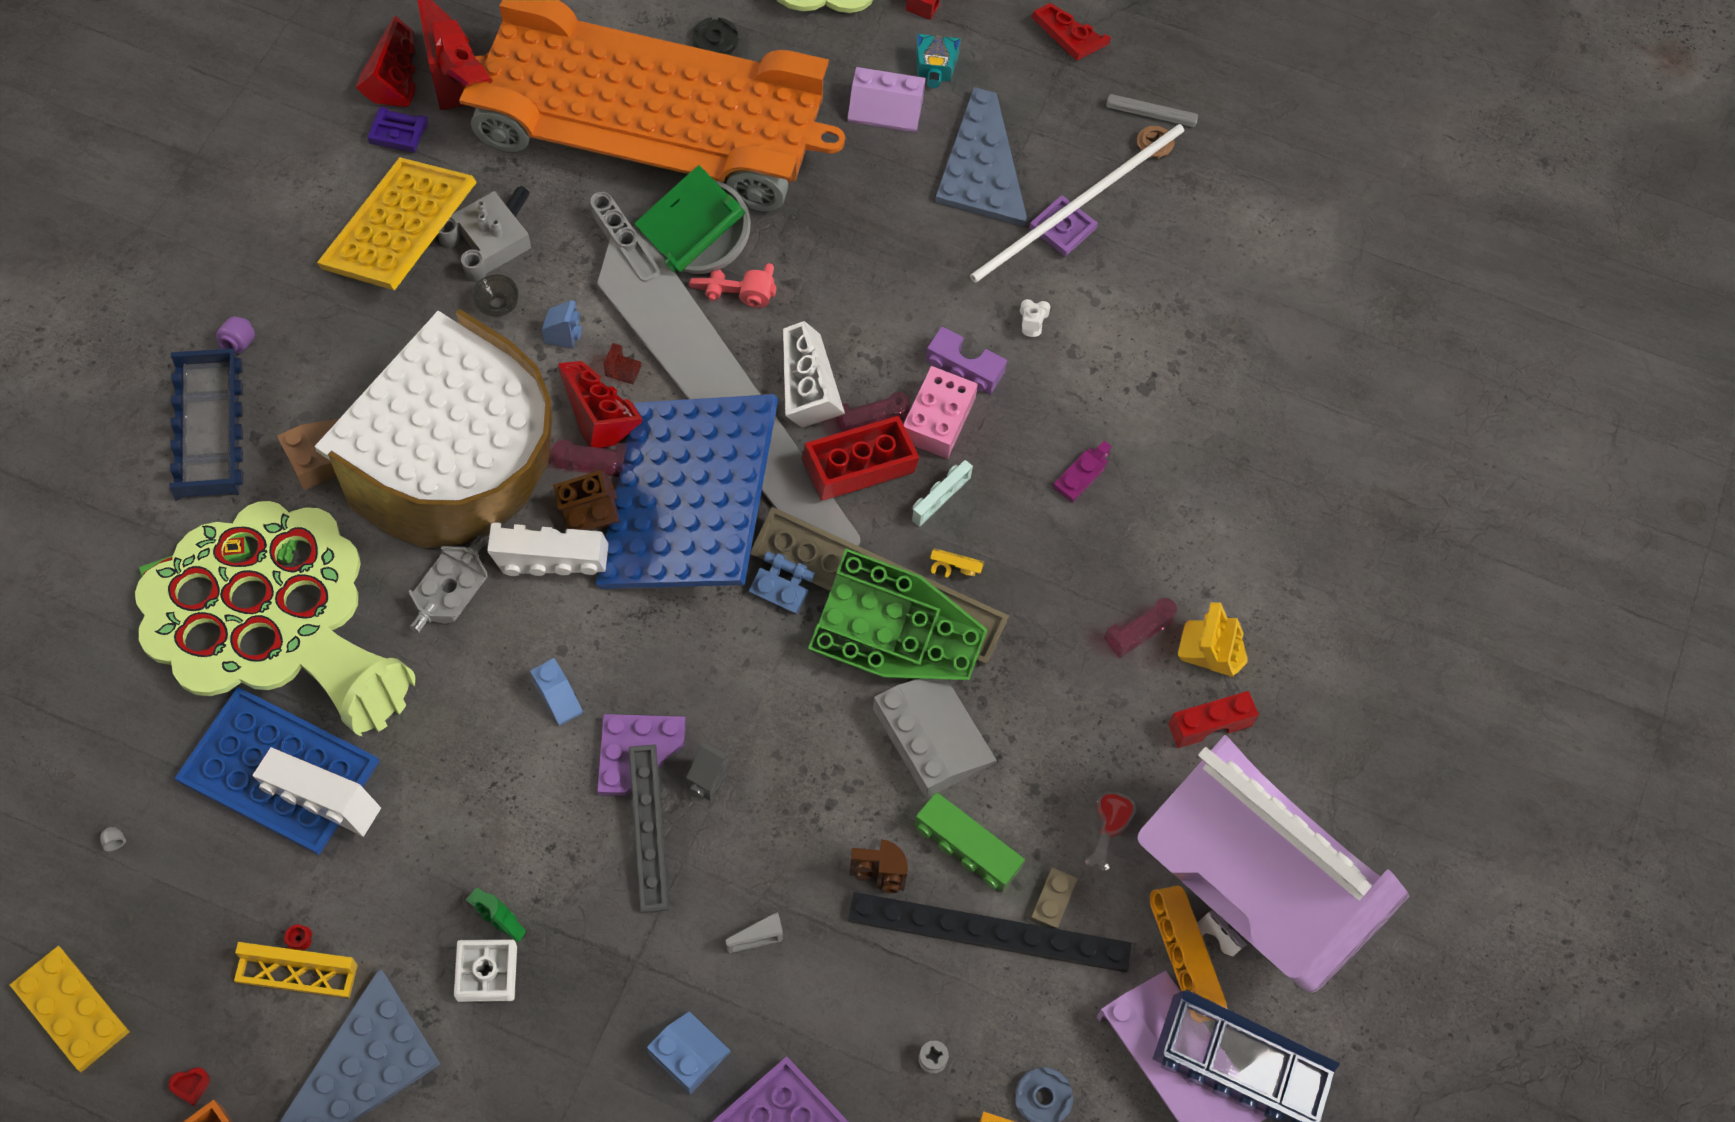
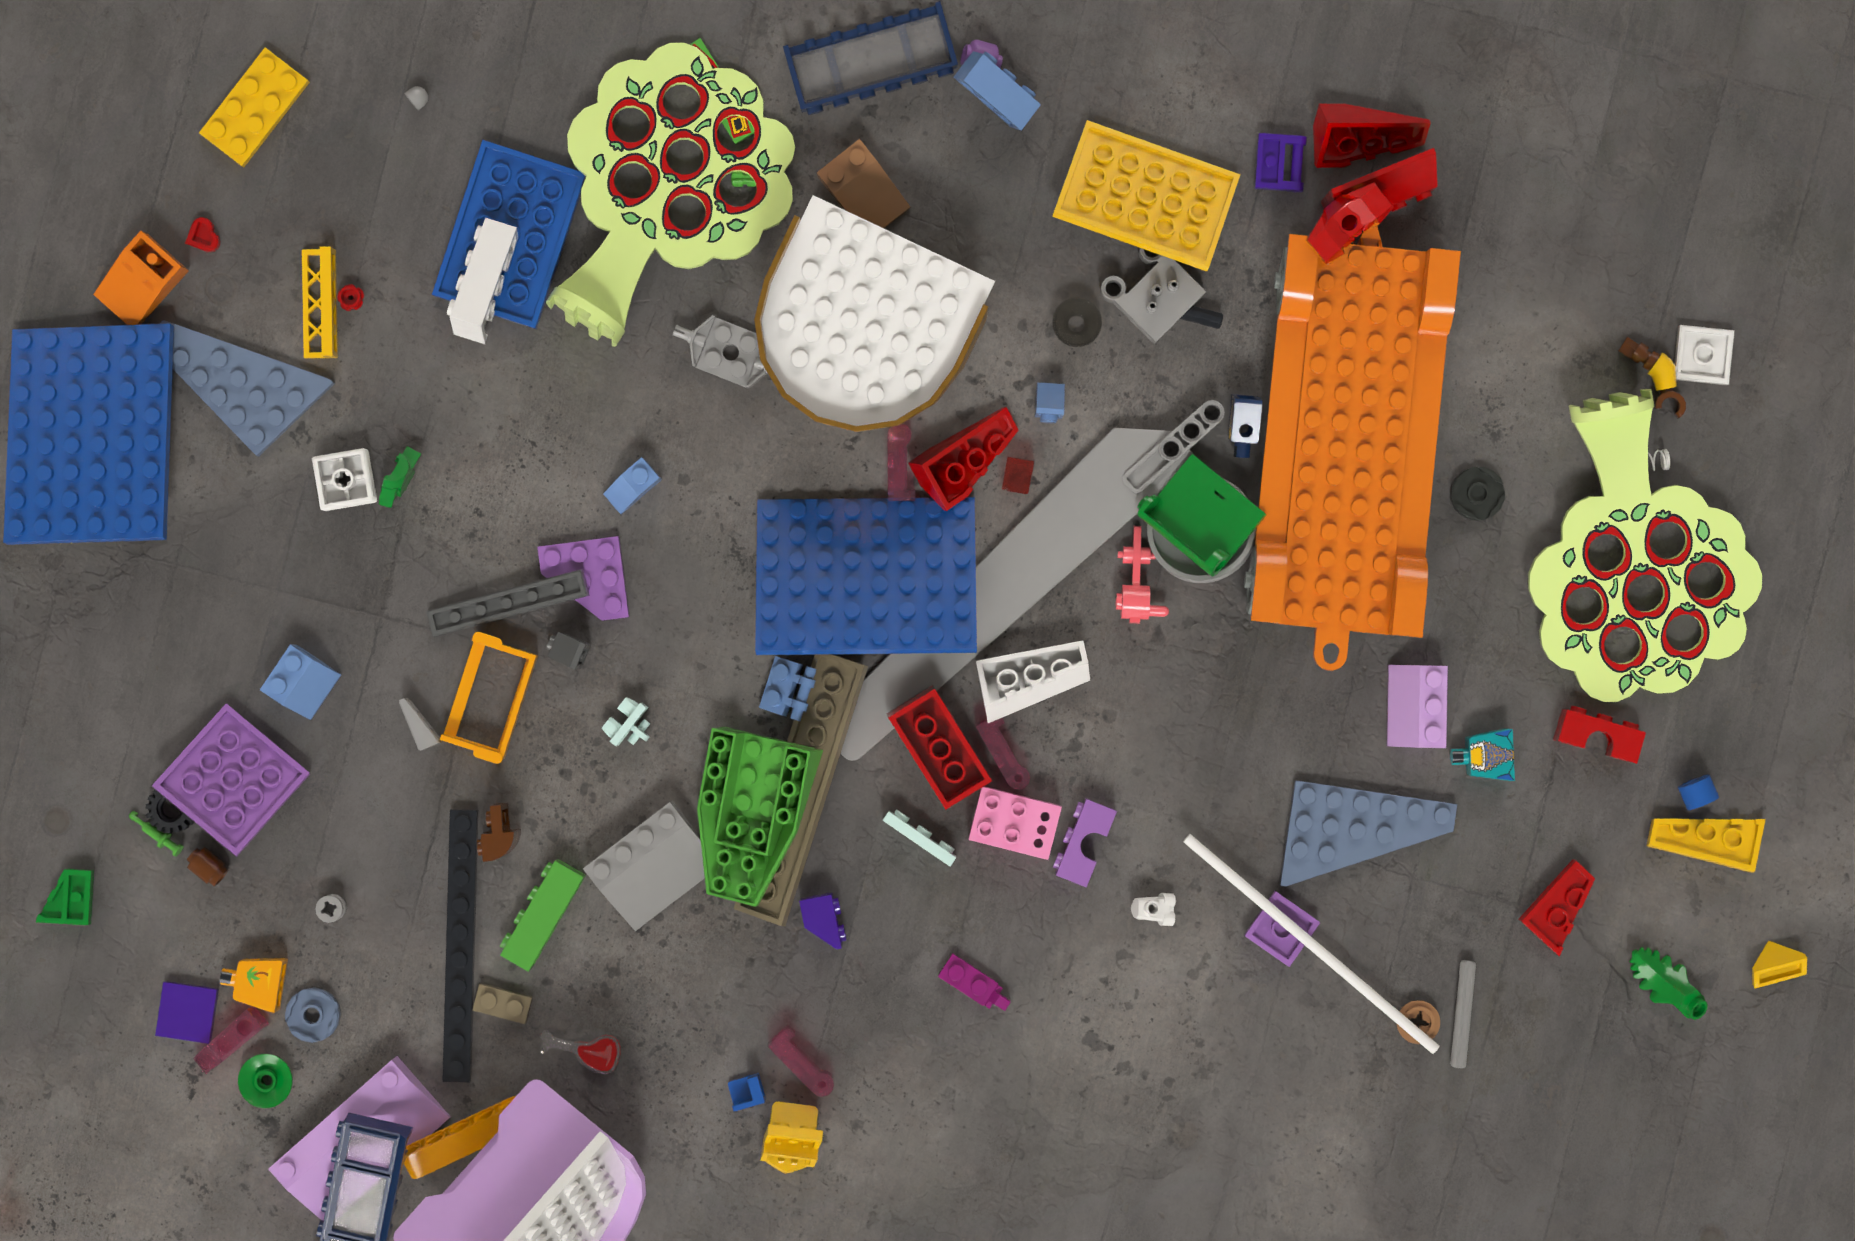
camera: 85 degrees right, 25 degrees up
(267, 319) = (997, 89): none -> medium blue brick
(547, 550) = (777, 448): white wedge -> none
(587, 501) = (838, 474): reddish brown brick -> none
(616, 180) = (1244, 410): none -> torso
(750, 835) = (483, 751): none -> light orange piece
(797, 740) = (634, 712): none -> light aqua hips
(968, 565) = (843, 864): yellow plate -> none
(1007, 586) = (821, 919): none -> dark purple slope
(1166, 679) = (746, 1092): none -> blue panel
(1199, 721) = (707, 1143): red arch -> none

